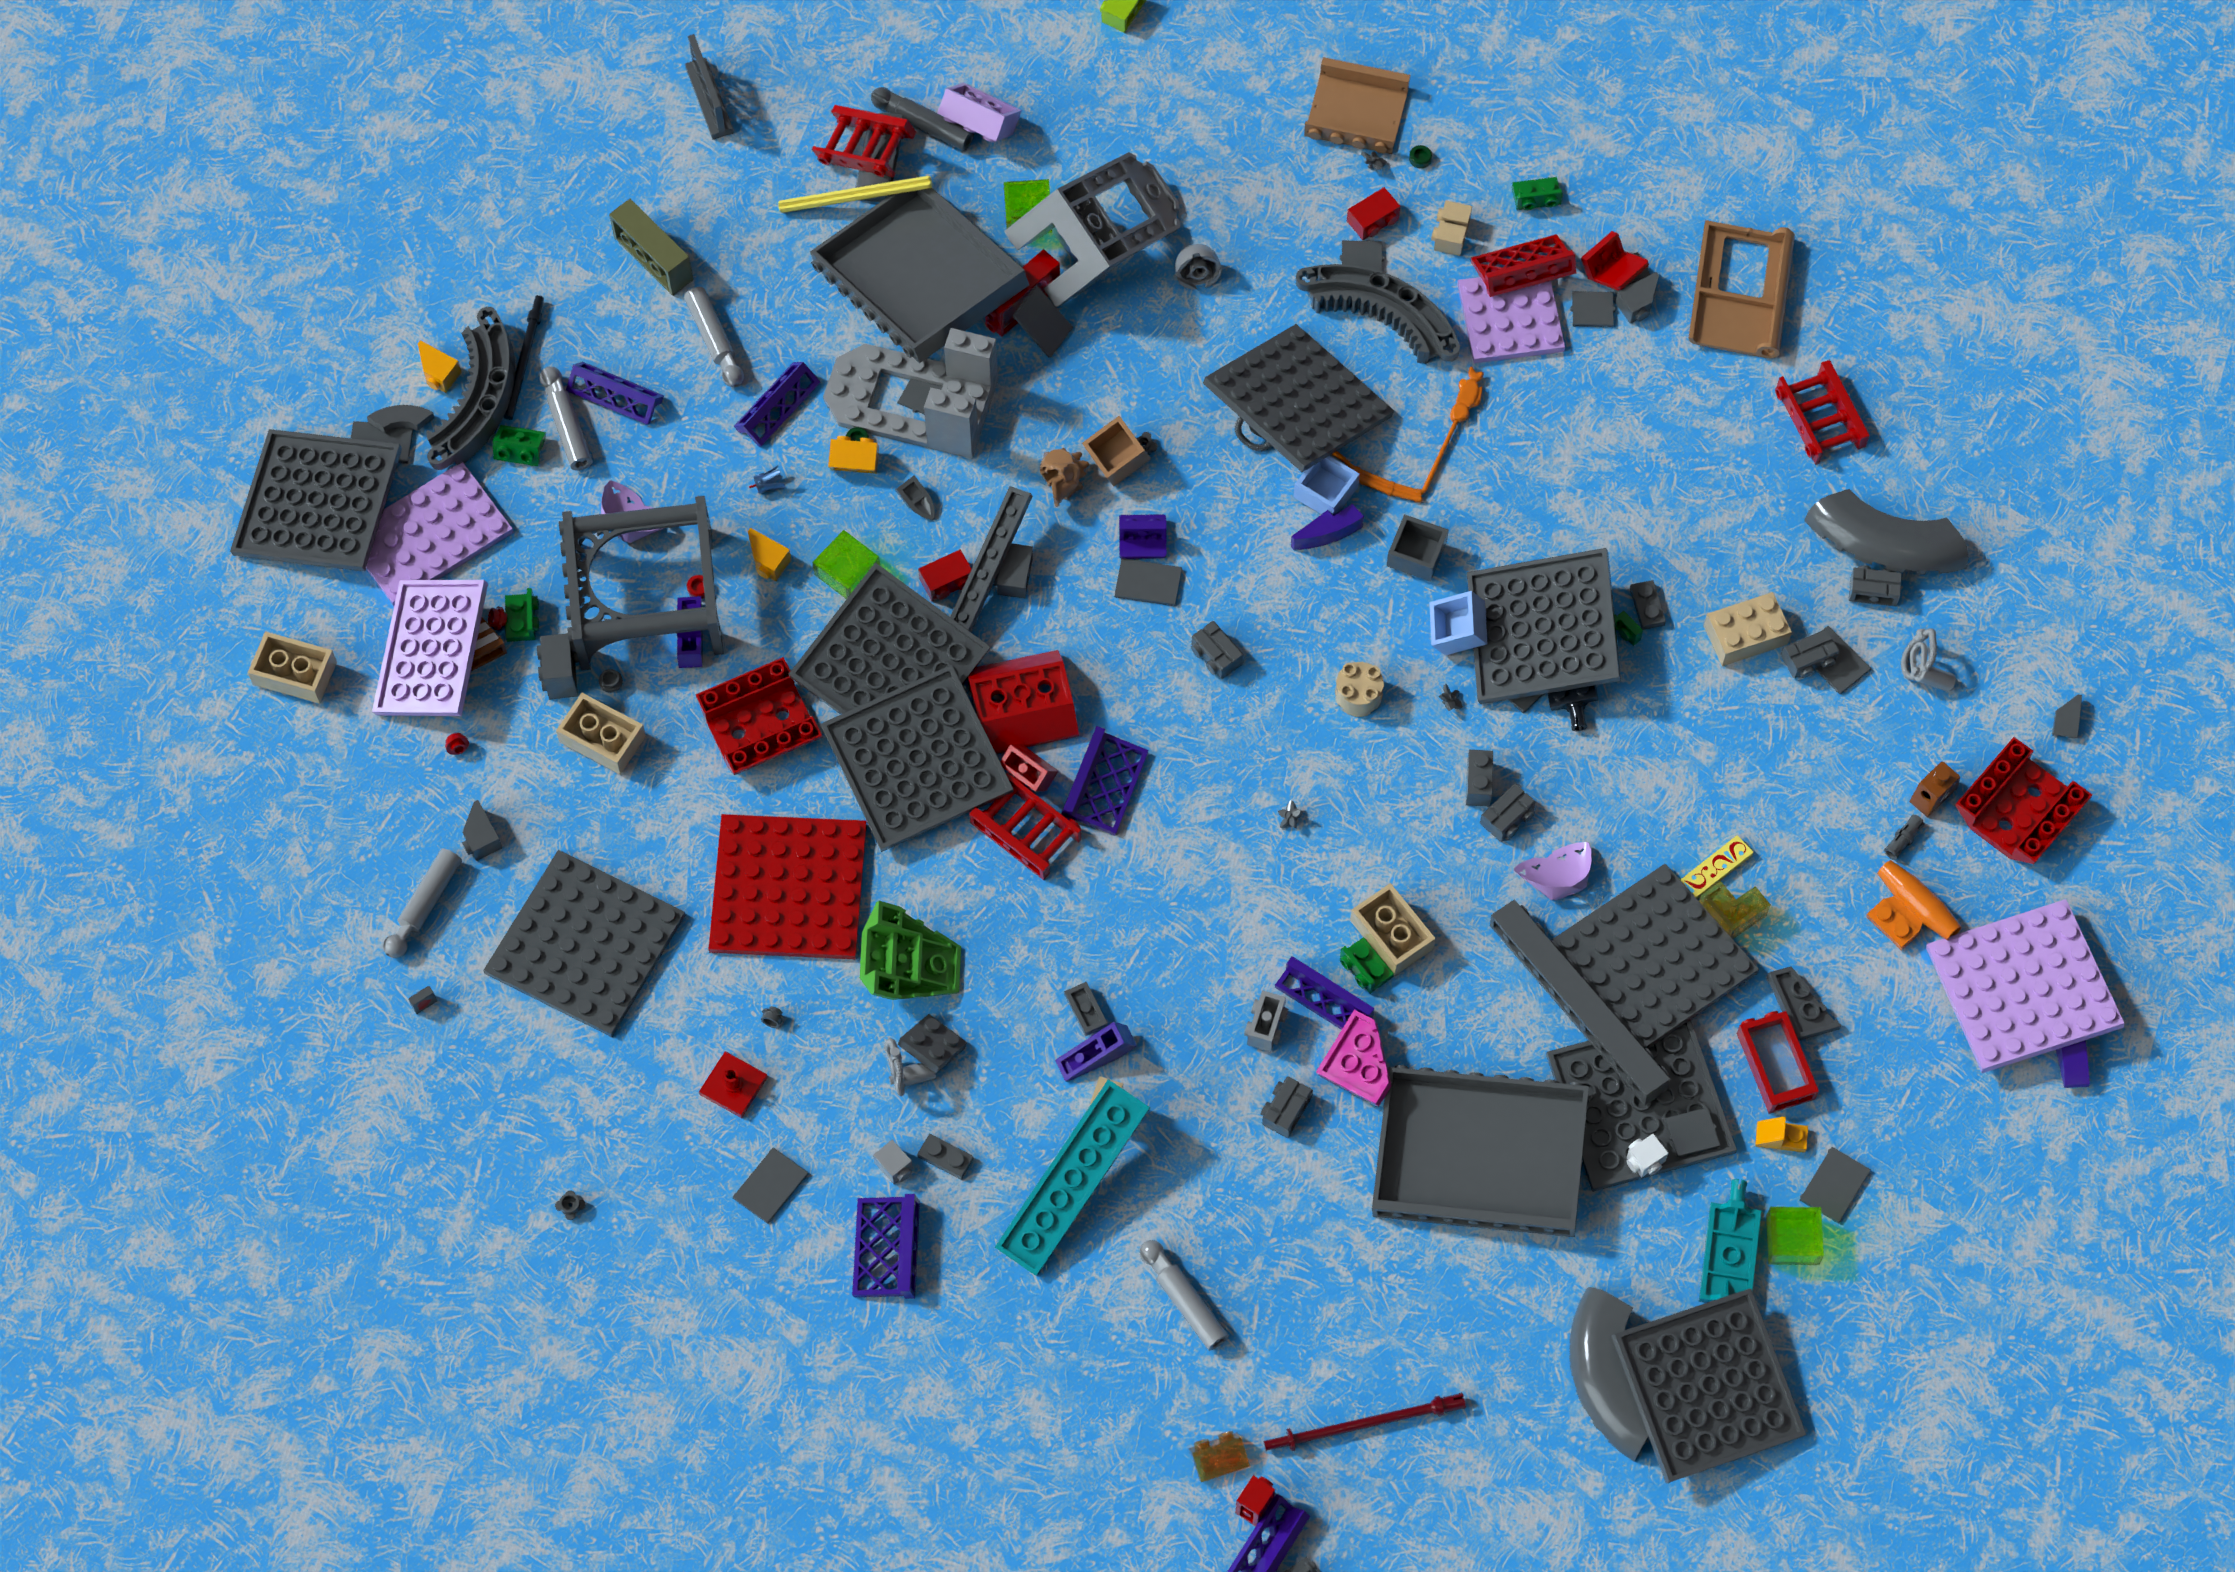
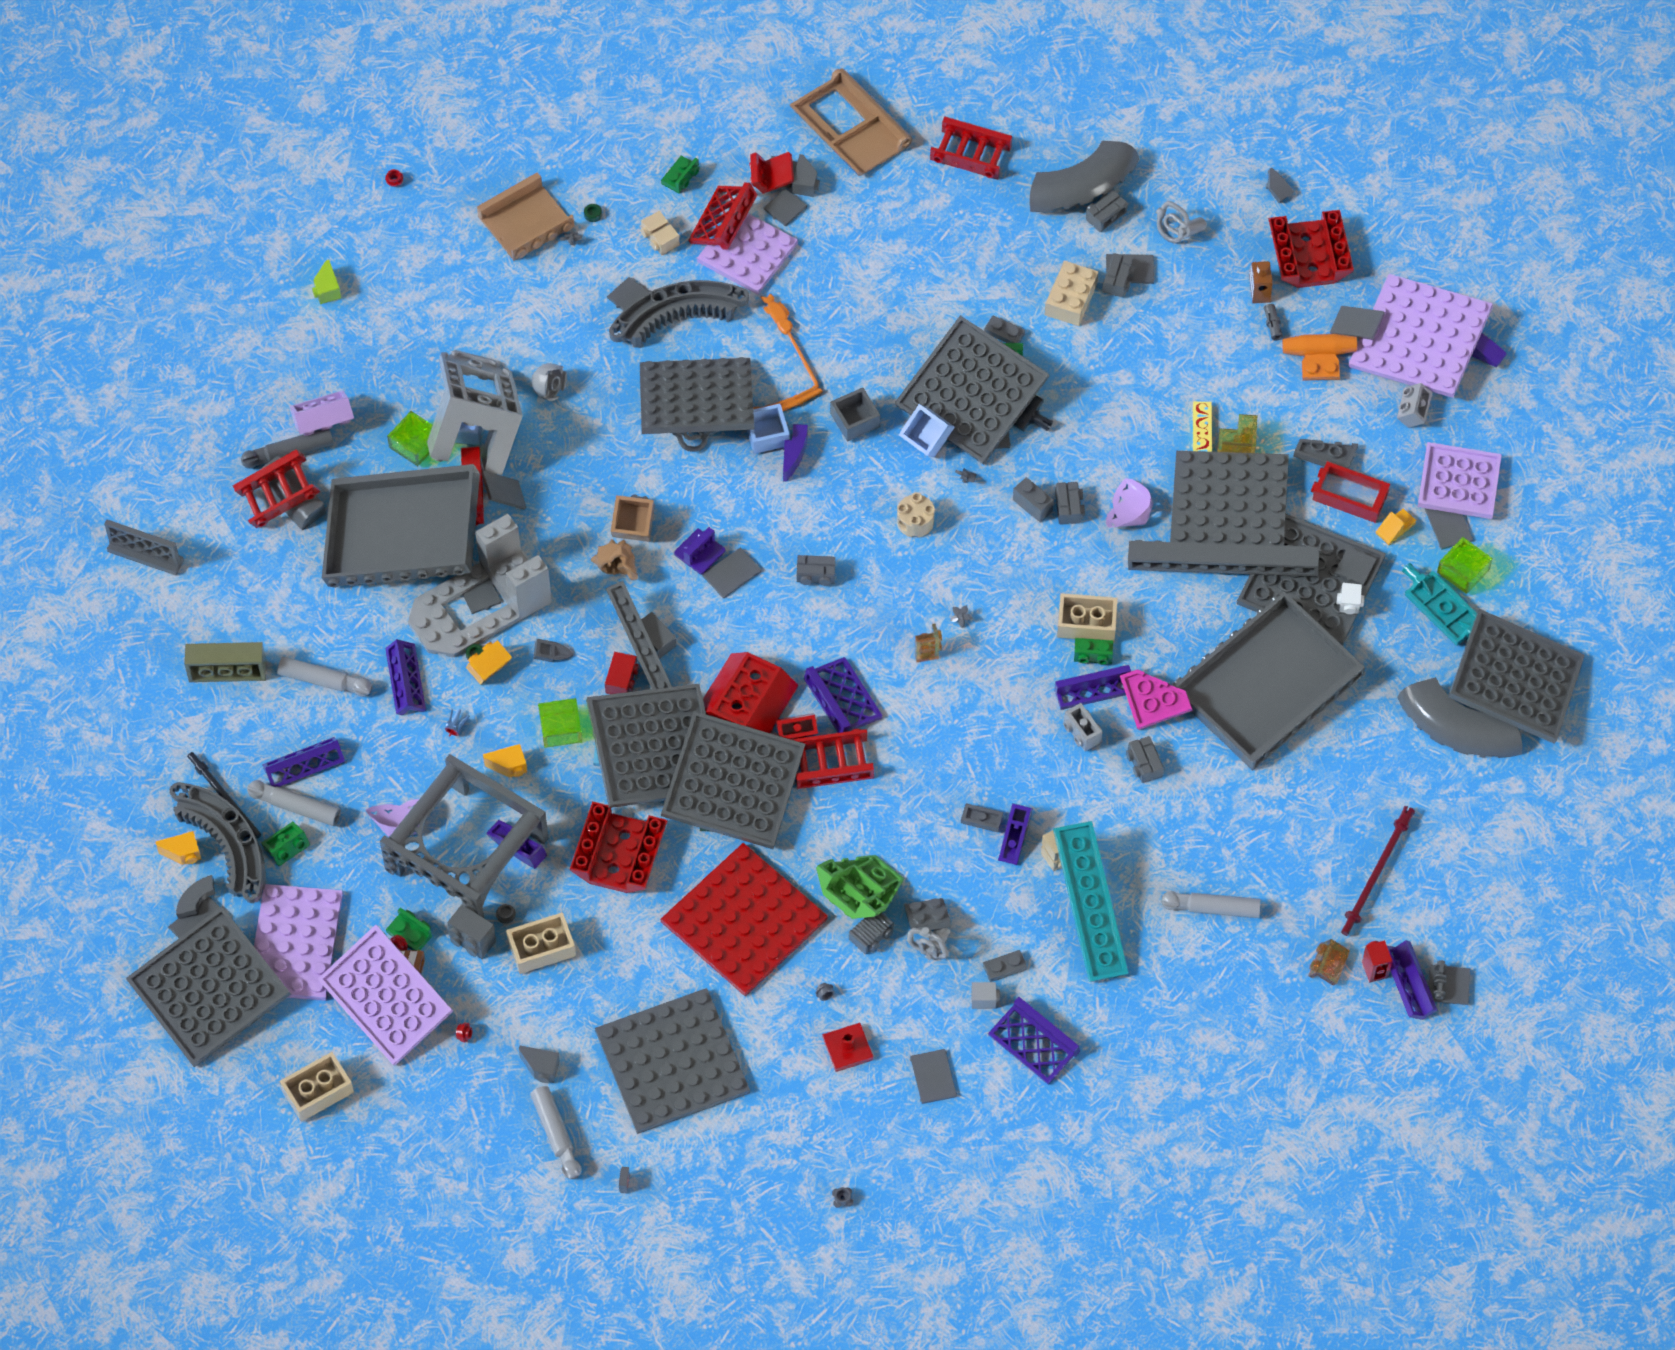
camera: 50 degrees left, 5 degrees down
(695, 586) = (488, 816): red tile -> none
(855, 194) = (306, 524): light yellow axle -> none
(870, 1009) = (870, 932): none -> dark grey brick
(1224, 813) = (928, 645): none -> clear orange bracket
(1373, 214) = (608, 265): red brick -> none
(1893, 1155) = (1459, 480): none -> lavender plate
(1936, 1043) = (1414, 405): none -> light grey brick
(1980, 914) = (1357, 322): none -> dark grey piece

